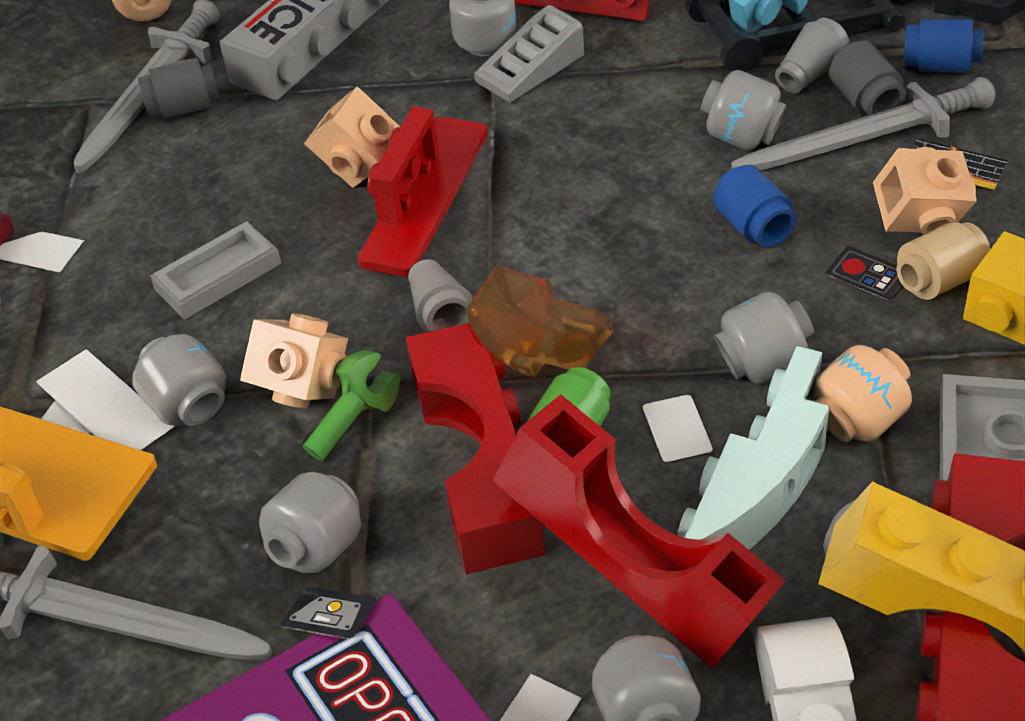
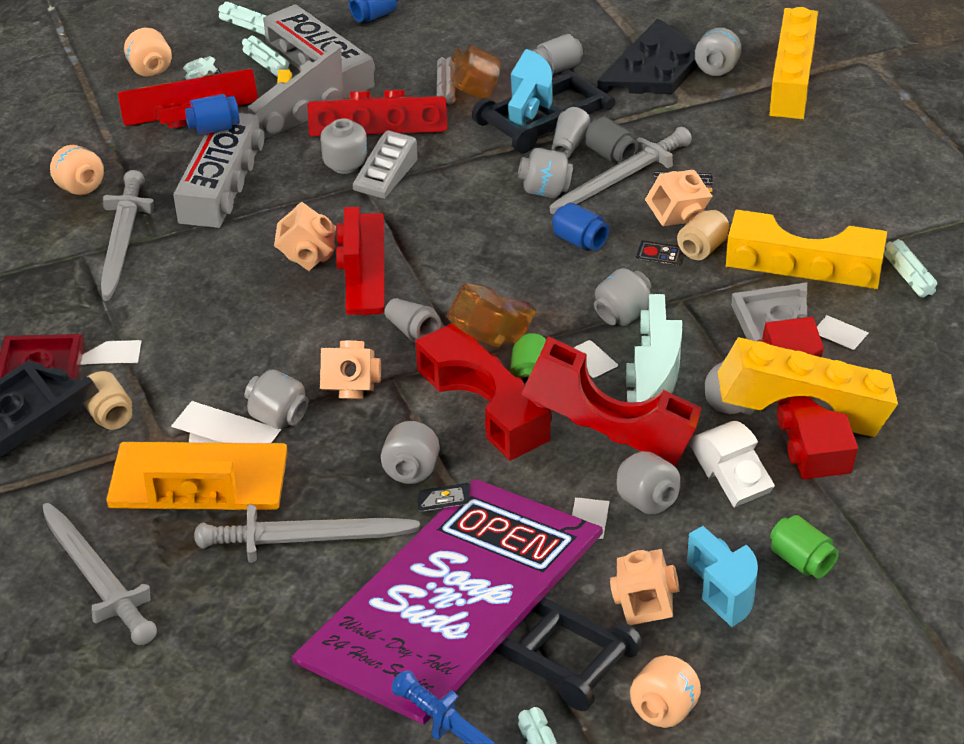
camera: 25 degrees left, 5 degrees down
(178, 89) = (153, 231): dark grey brick -> none
(215, 270) = (250, 336): light grey tile -> none
(354, 398) = (398, 379): bright green bar -> none
(863, 392) = (697, 309): light nougat head -> none
(943, 45) = (648, 112): blue brick -> none

